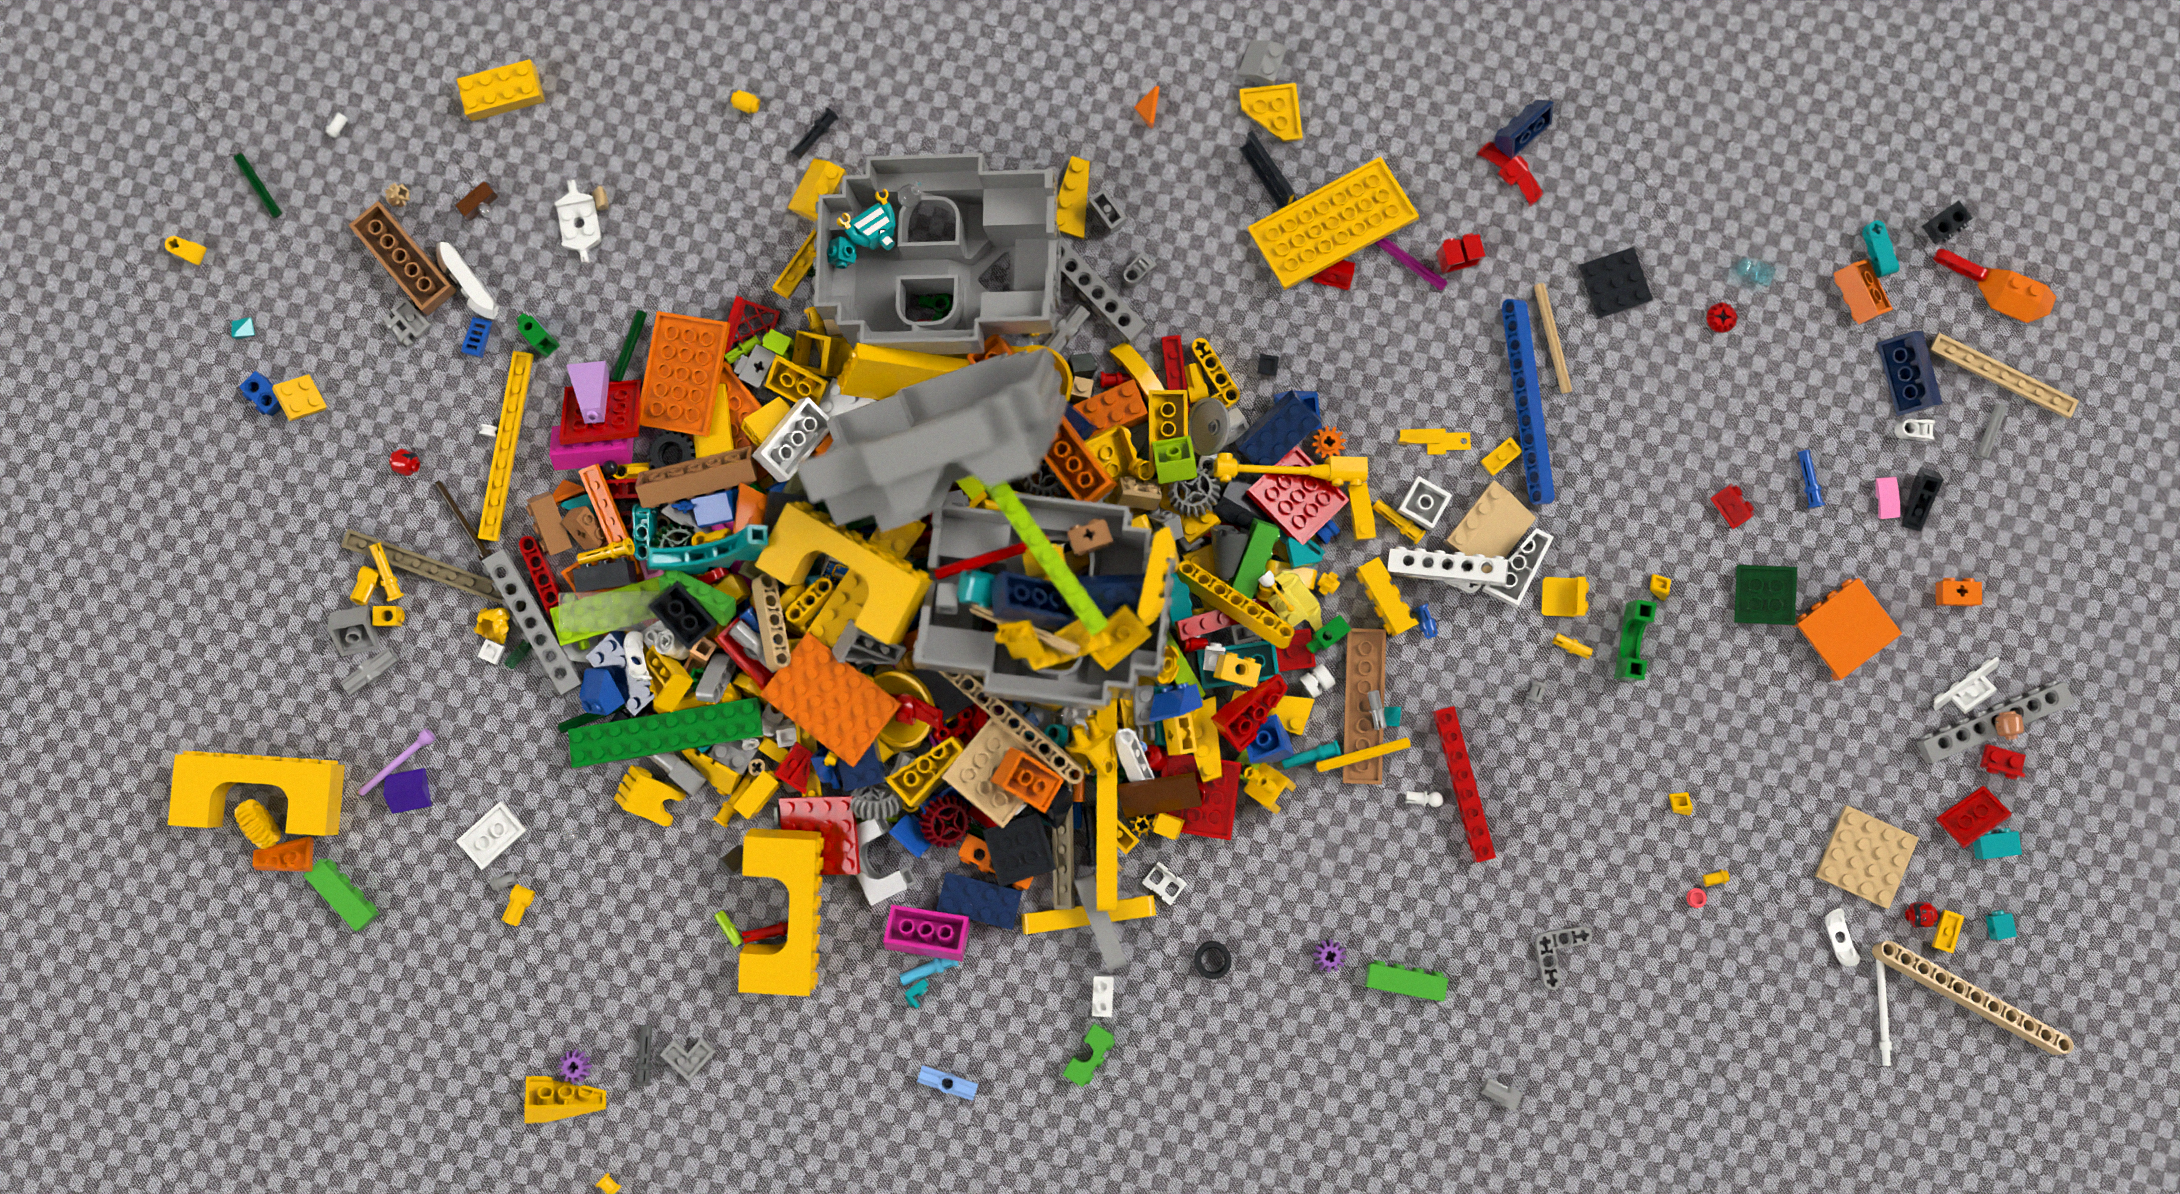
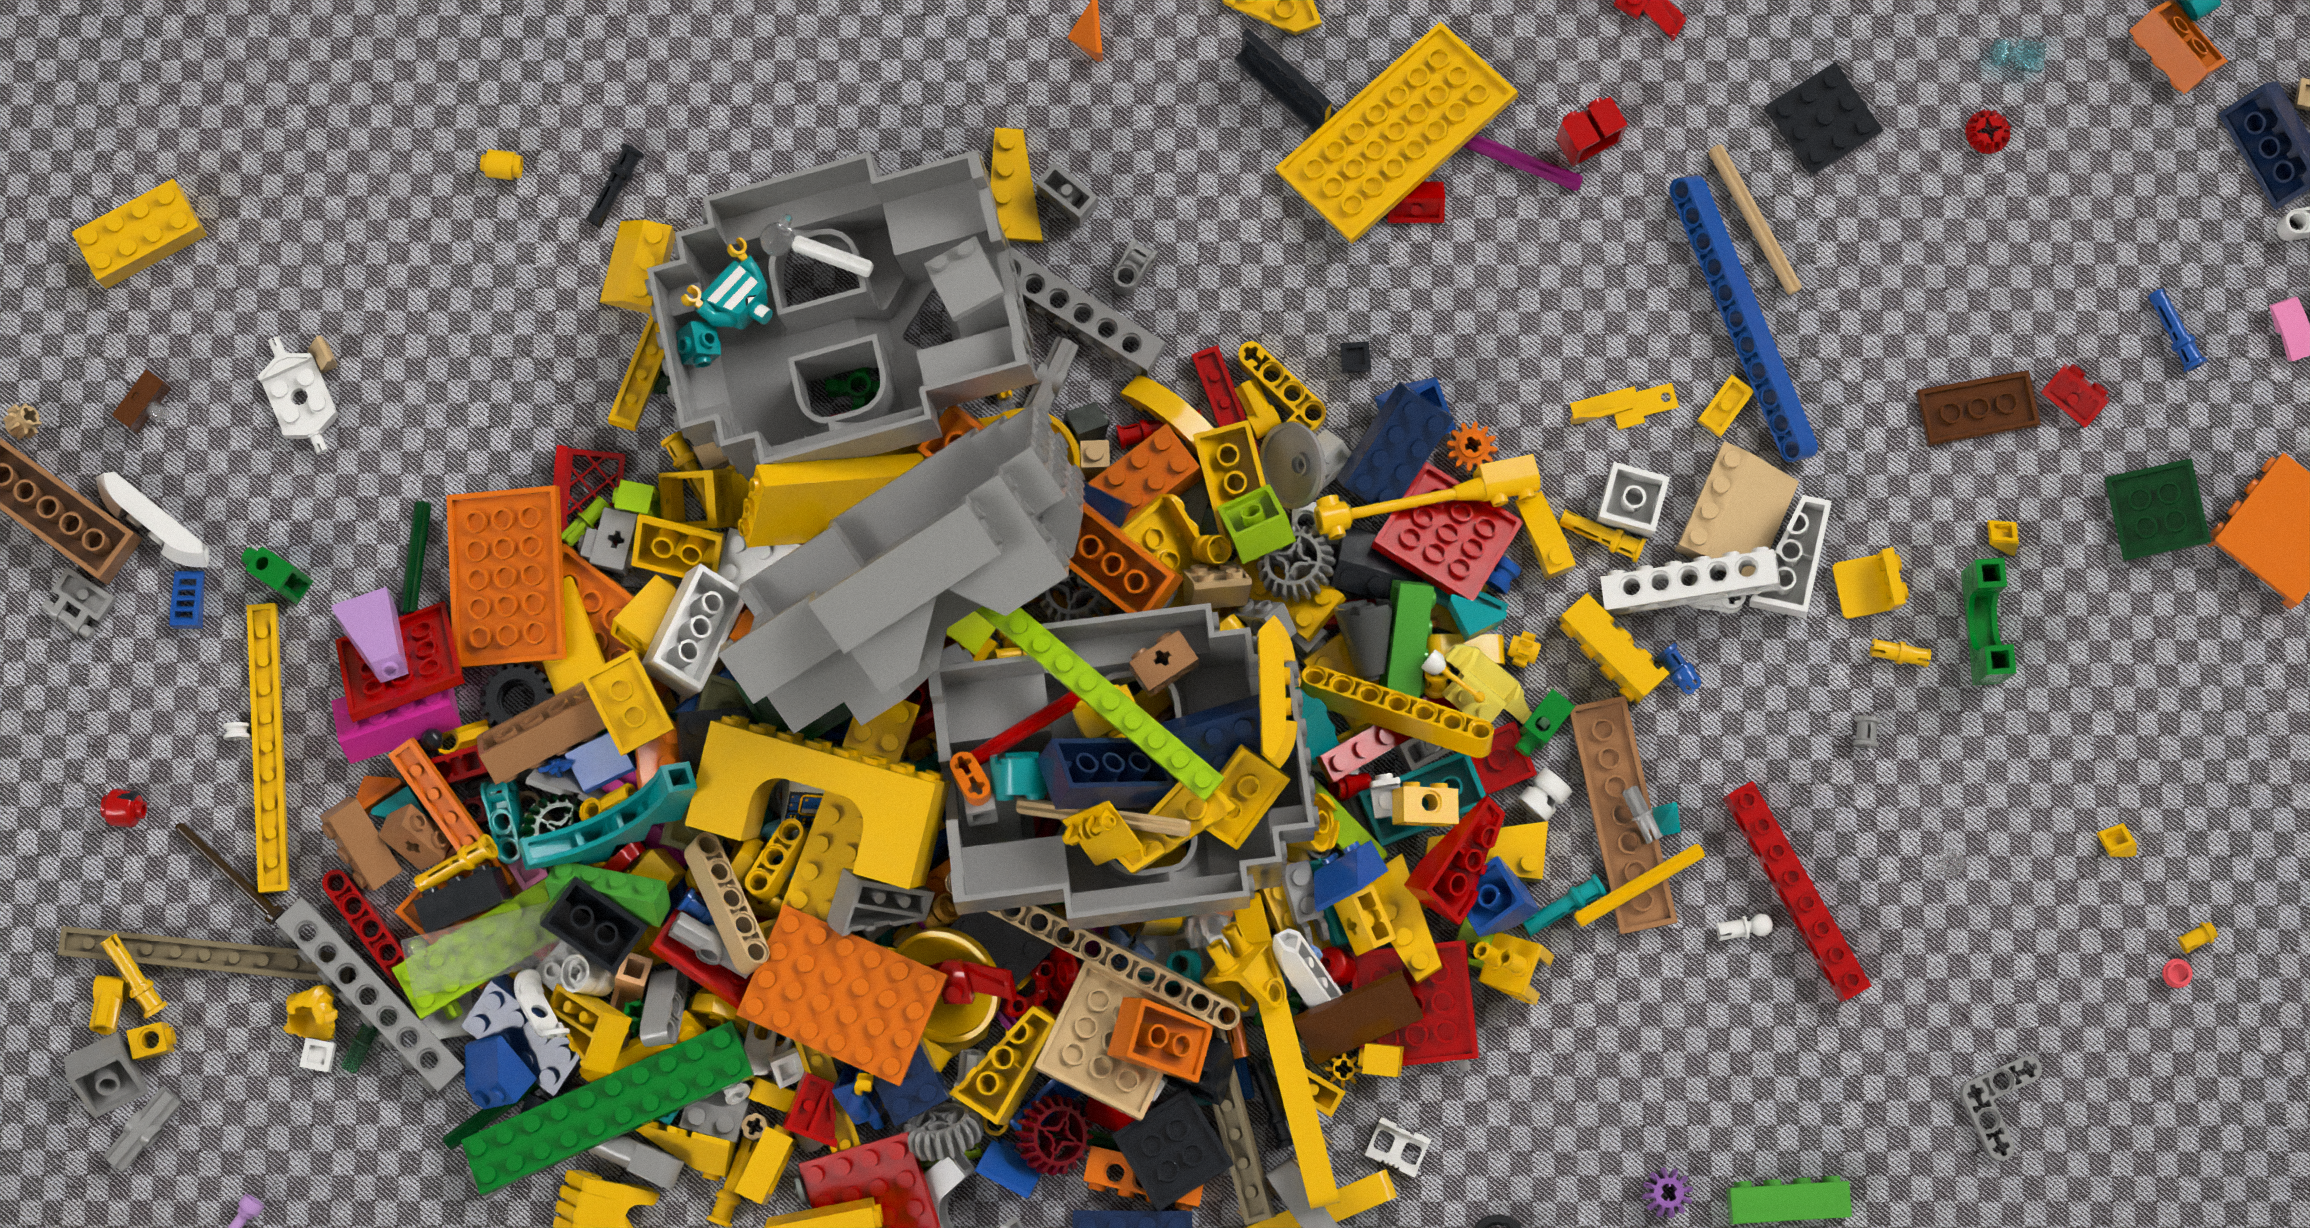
camera: 15 degrees left, 5 degrees down
(738, 476) = (627, 702): none -> yellow plate
(940, 583) = (976, 775): none -> orange beam
(942, 216) = (832, 256): none -> white axle
(1023, 252) = (964, 278): none -> light grey slope
(1666, 498) = (1978, 408): none -> reddish brown tile

